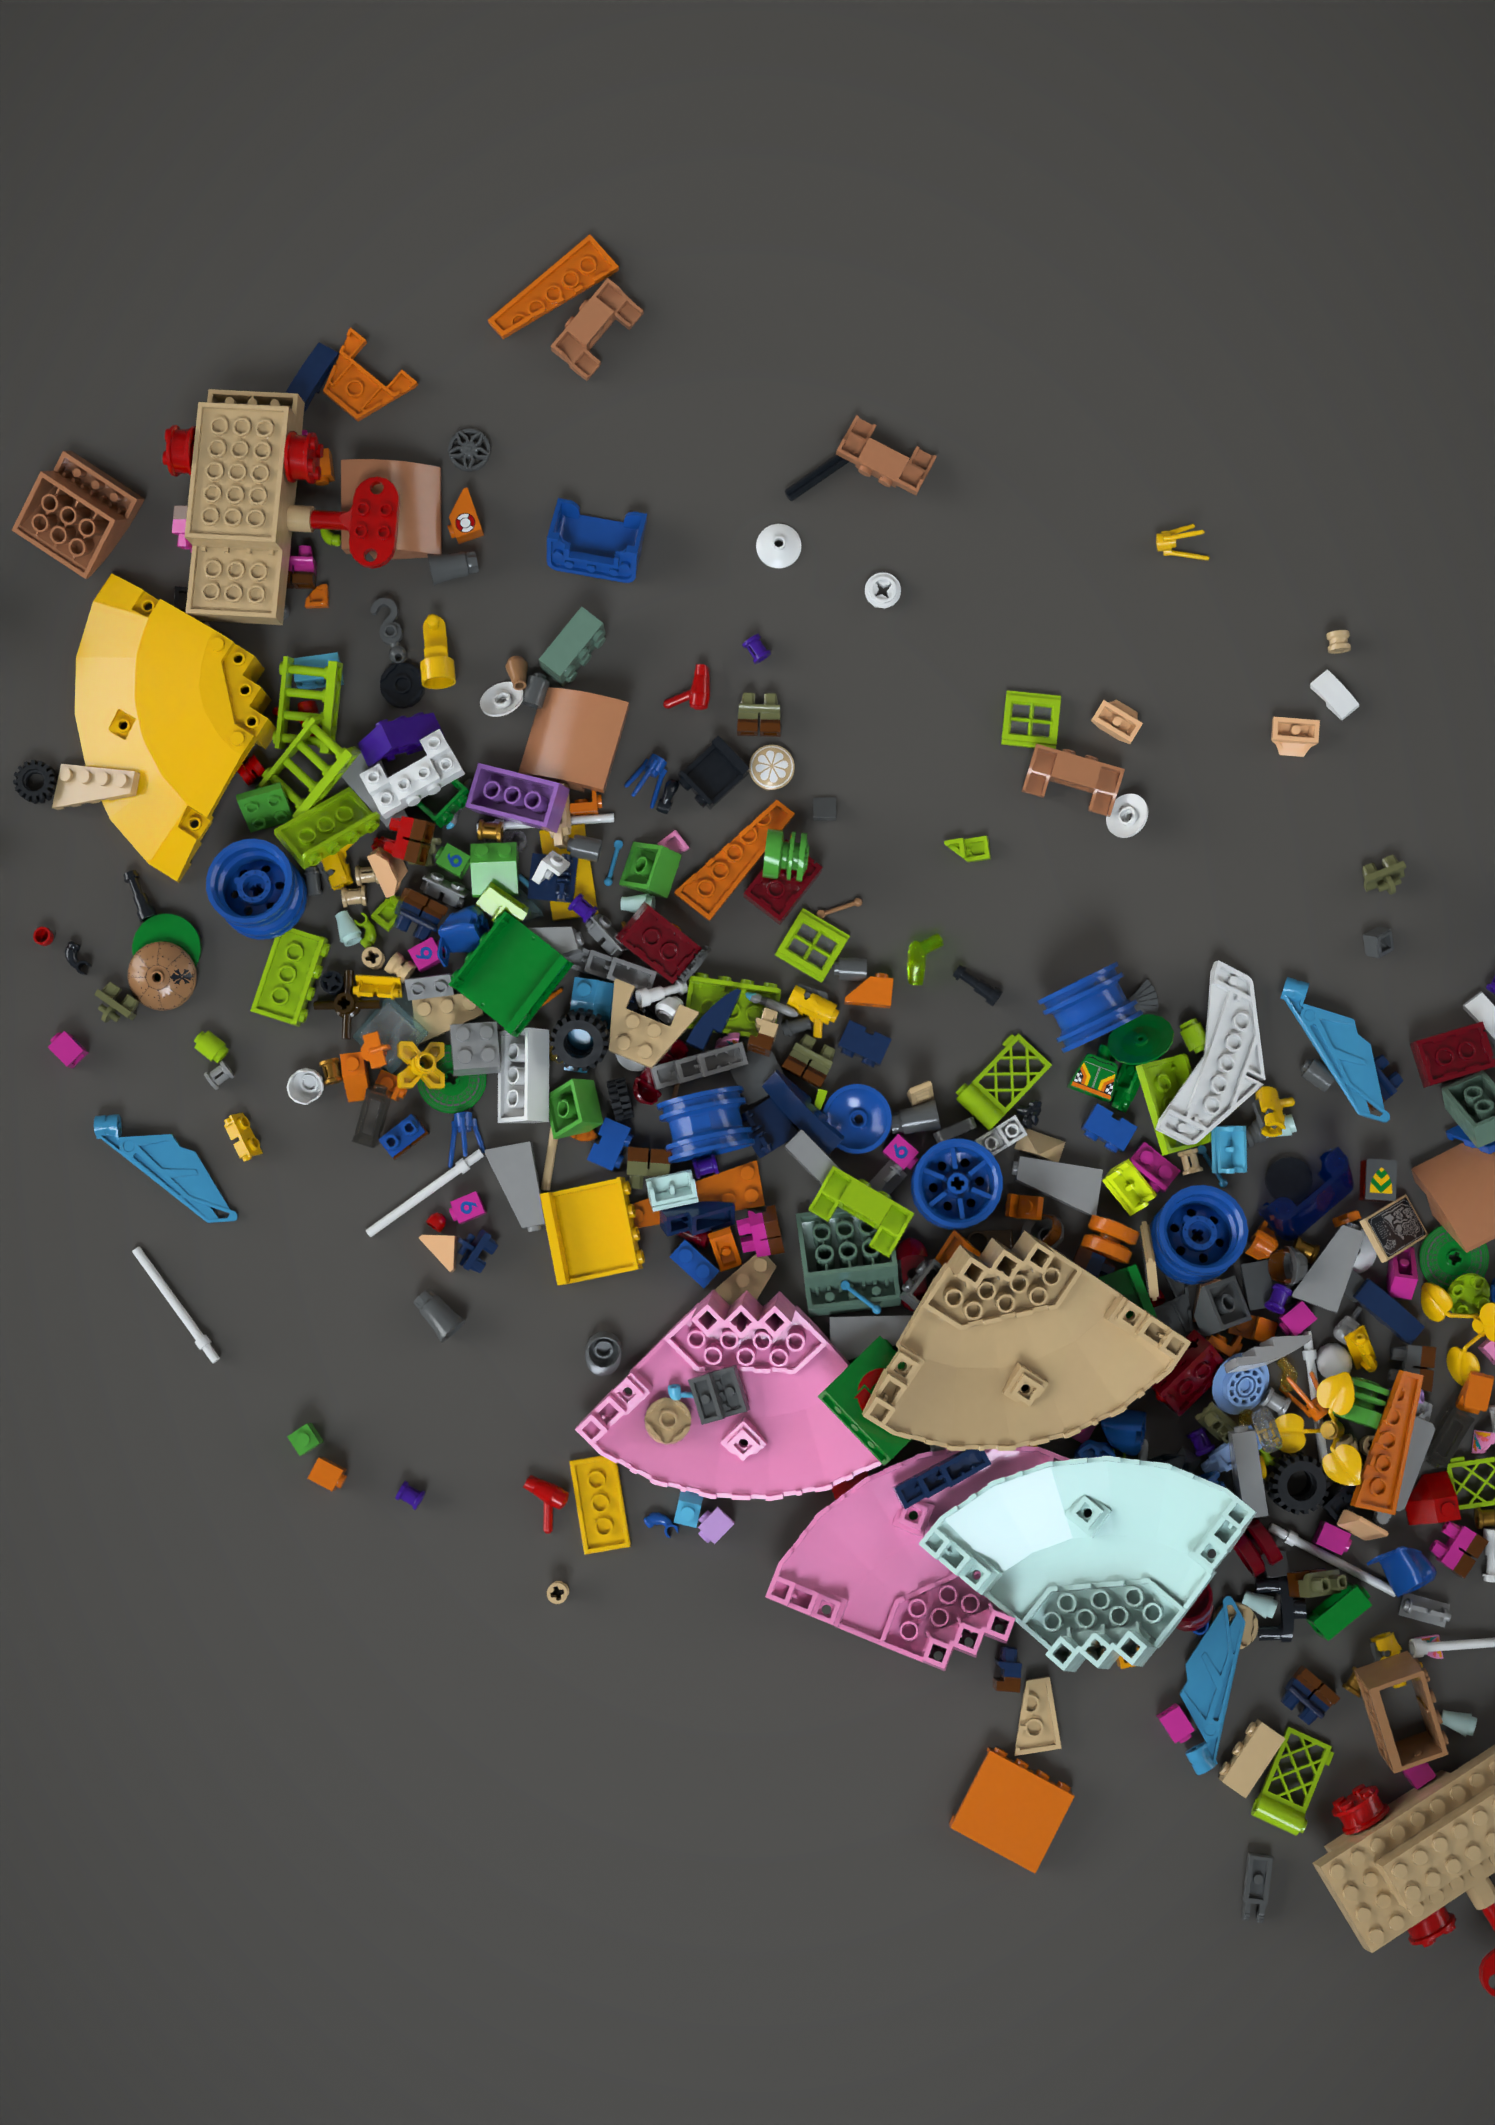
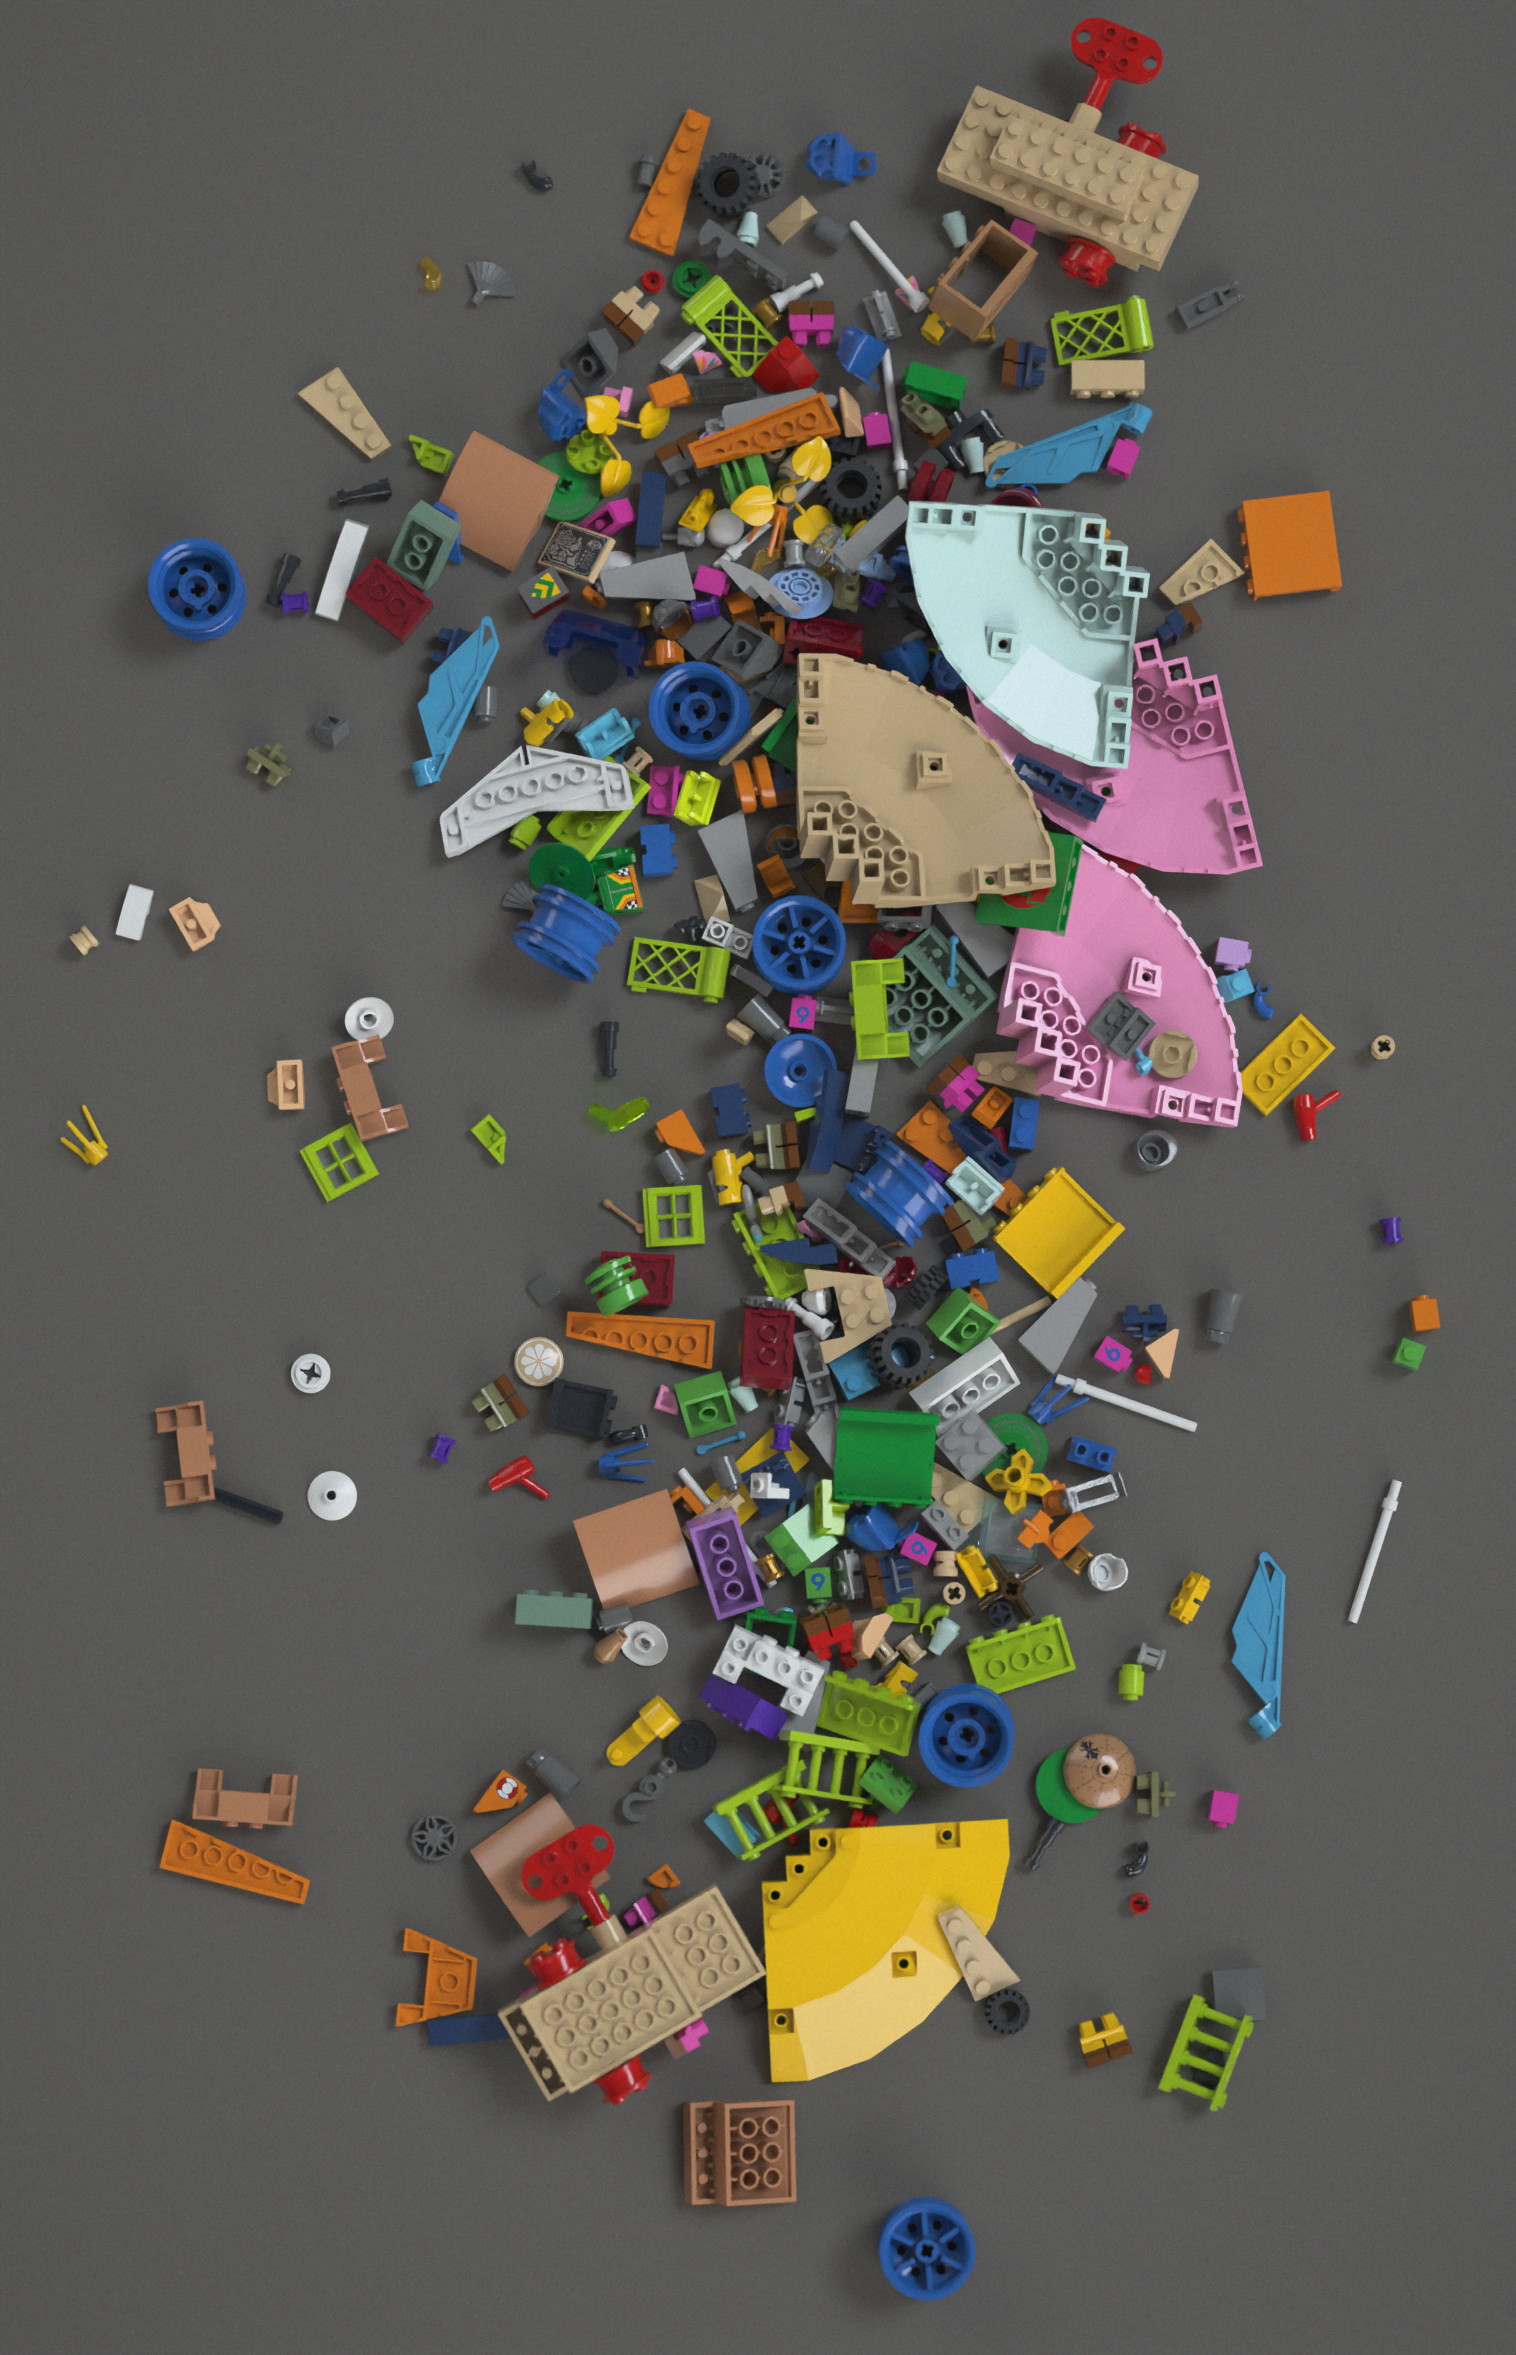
camera: 130 degrees left, 0 degrees up
(595, 544) = (443, 1659): blue windscreen -> none

